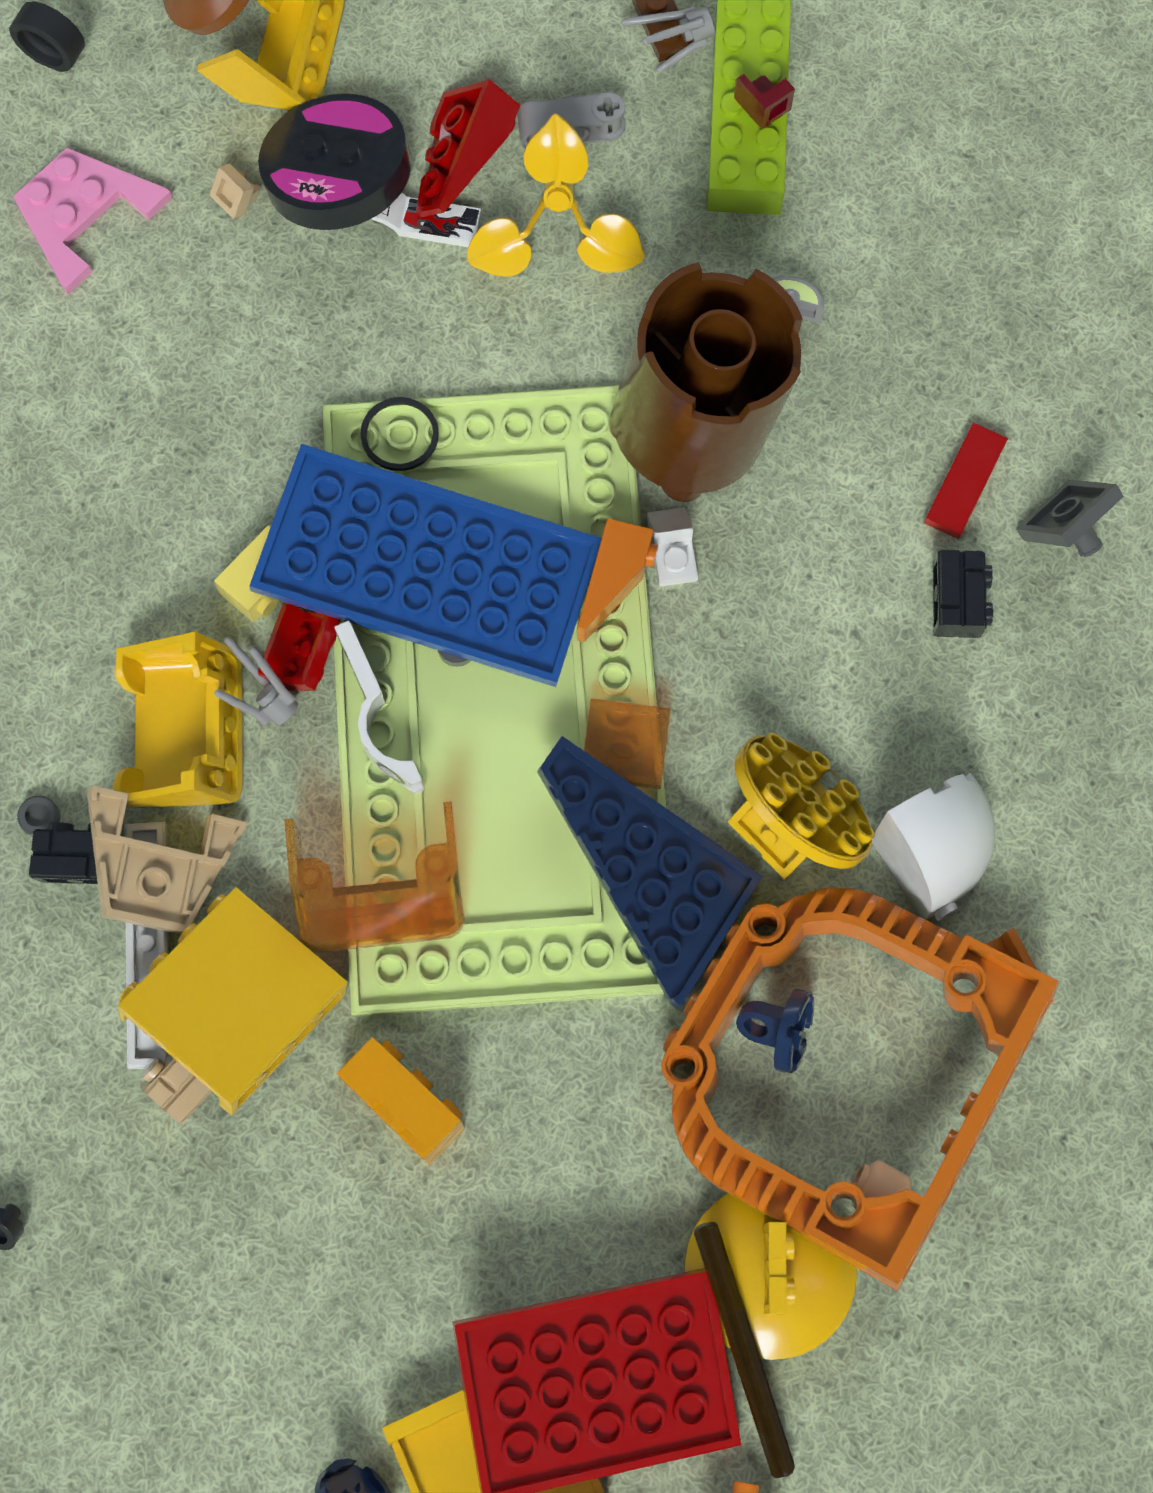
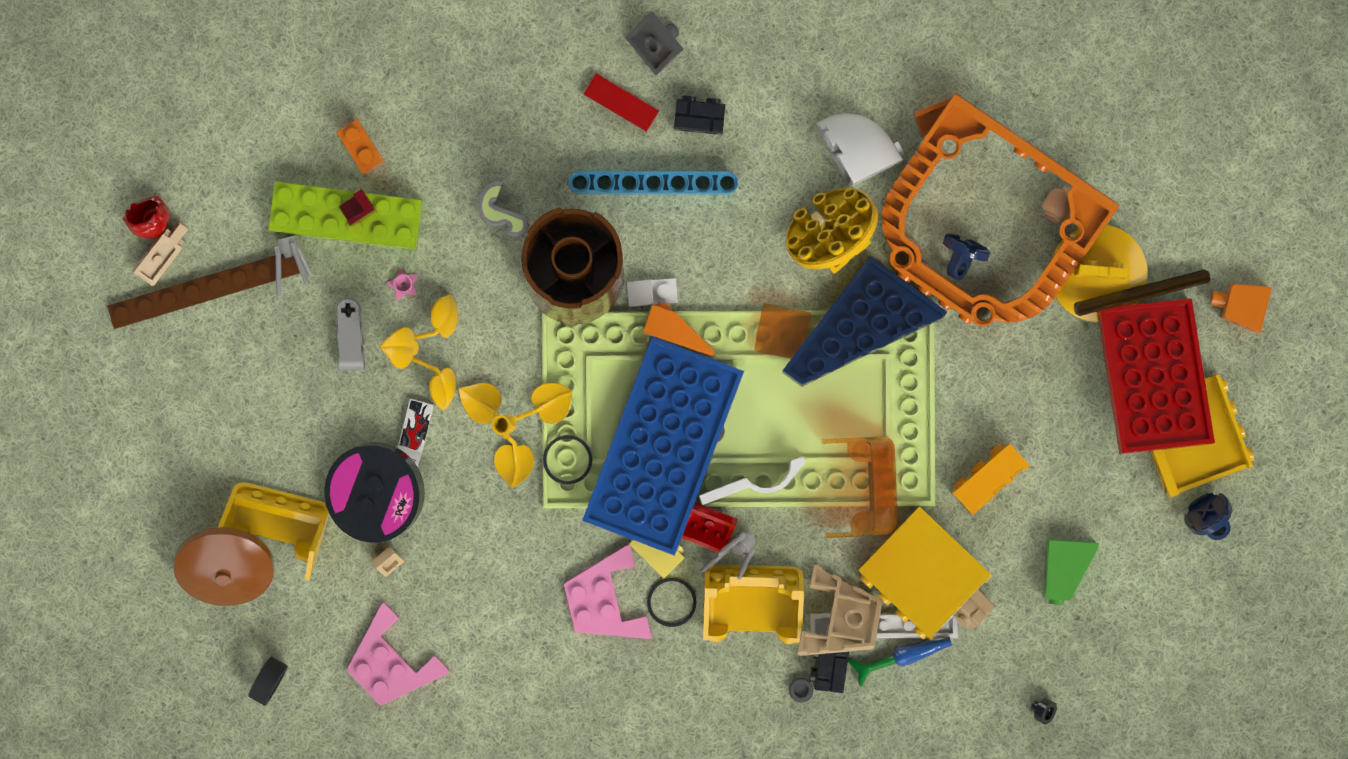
camera: 85 degrees left, 15 degrees up
(94, 975) = (902, 656): none -> blue piece
(175, 492) = (594, 600): none -> bright pink wing
(179, 573) = (671, 624): none -> black piece
(252, 1246) = (1065, 568): none -> bright green slope
(466, 133) = (360, 405): red wedge -> none
(483, 308) = (481, 403): none -> yellow plant
(655, 184) = (401, 277): none -> bright pink plate
(846, 549) = (642, 176): none -> dark azure beam
(854, 116) = (360, 147): none -> orange brick

